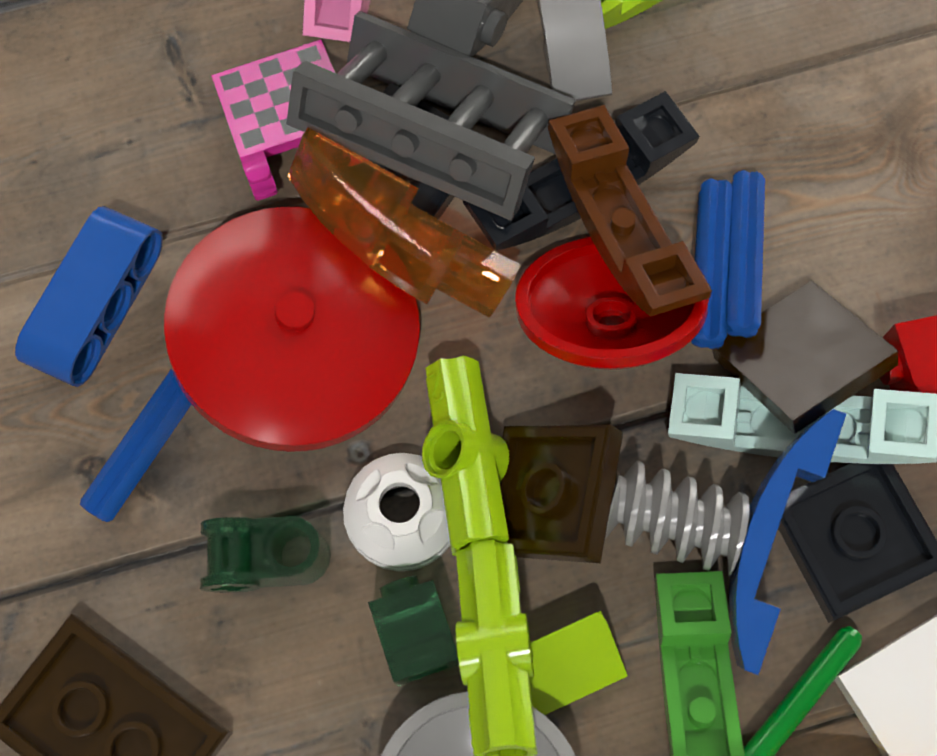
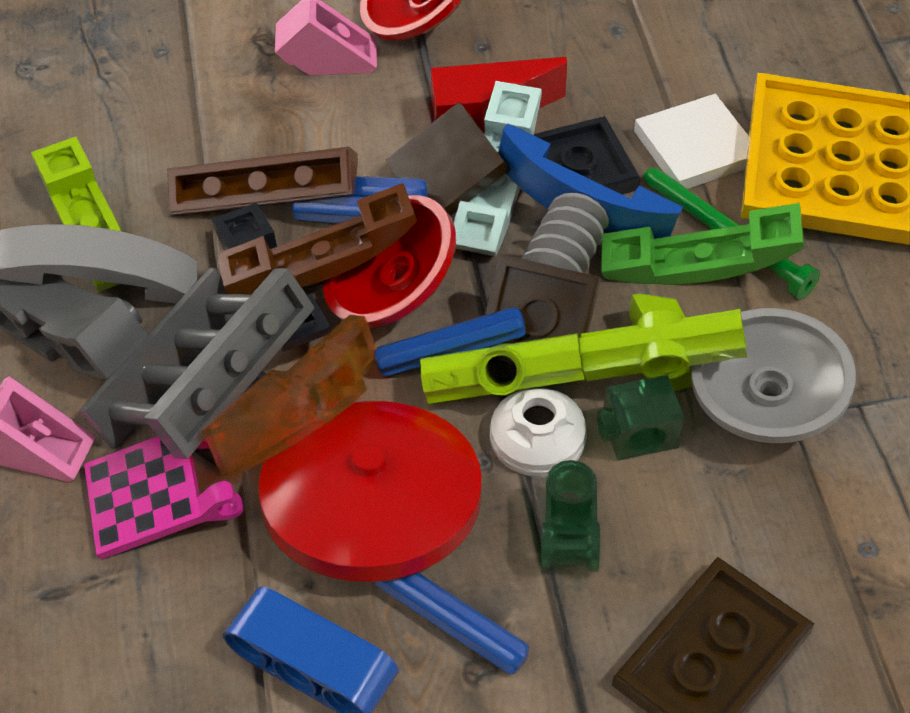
camera: 85 degrees left, 20 degrees down
(504, 393) = (460, 337): none -> blue axle
(737, 141) = (262, 181): none -> reddish brown slope

